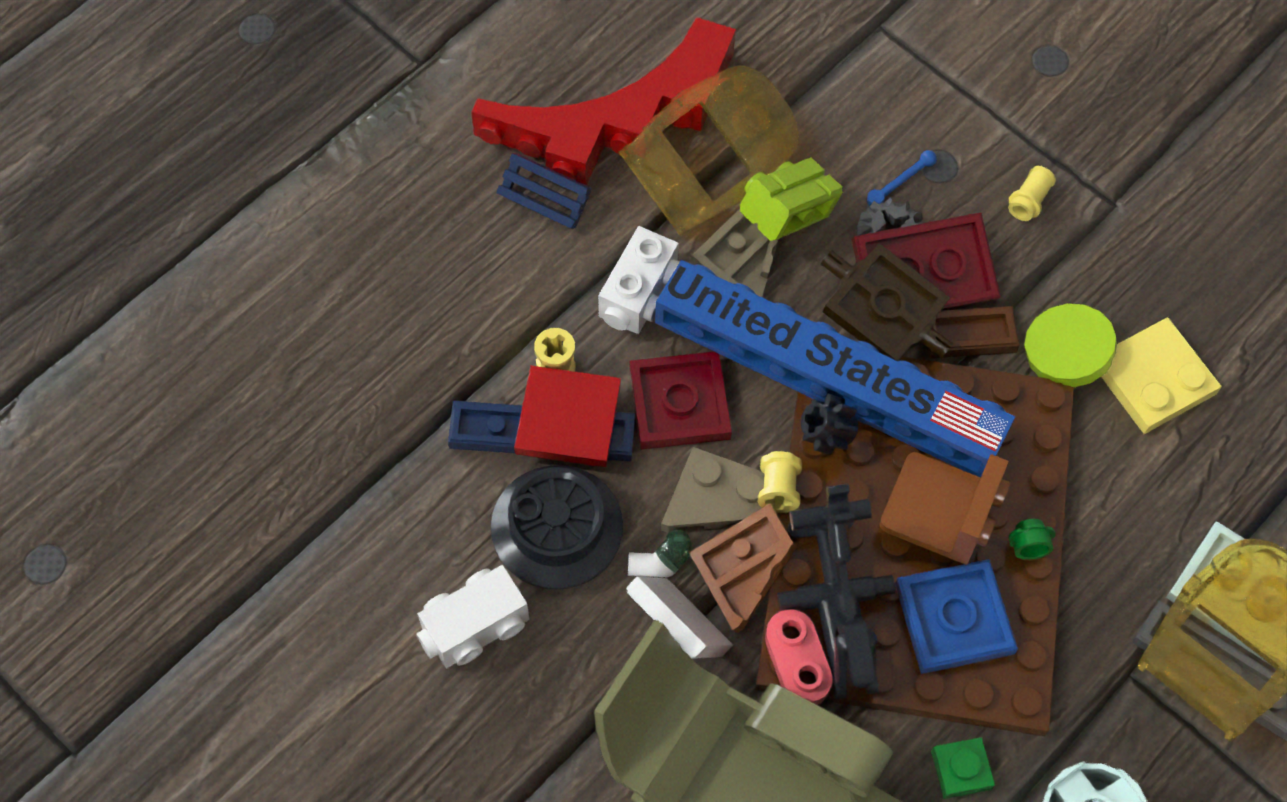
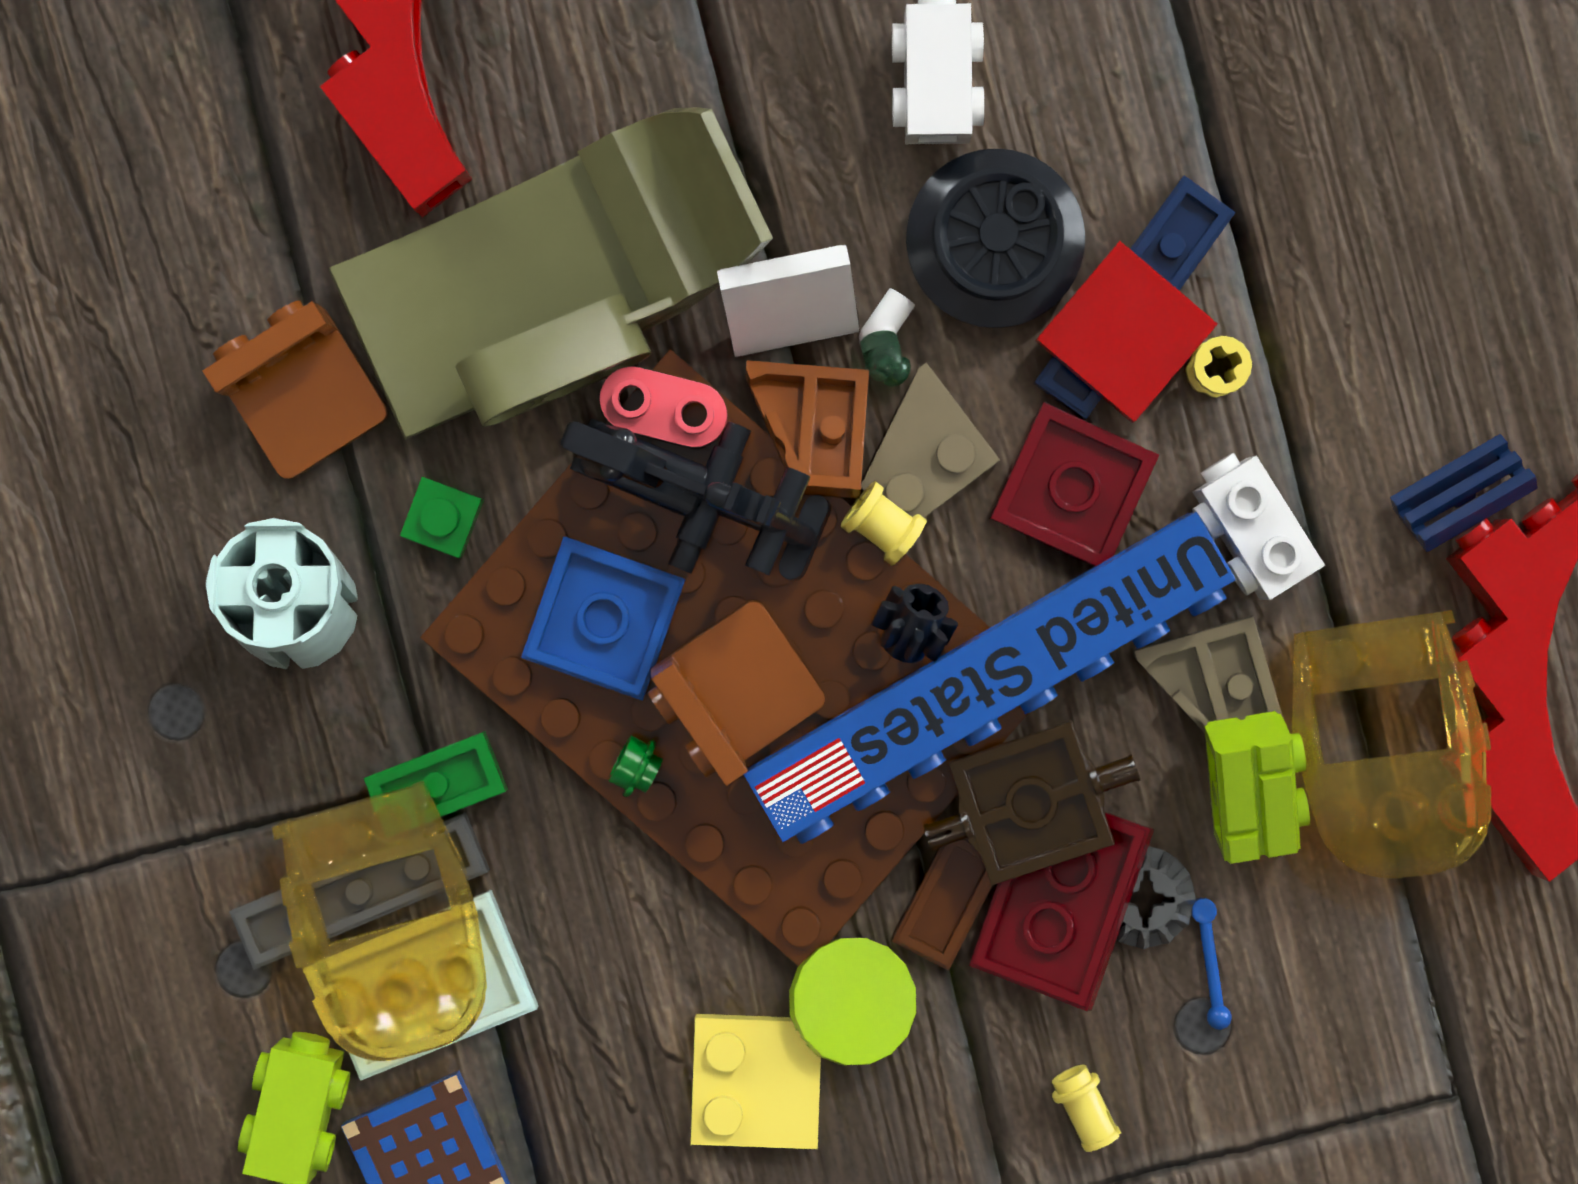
camera: 125 degrees right, 25 degrees up
(1115, 656) = (453, 774): none -> green plate

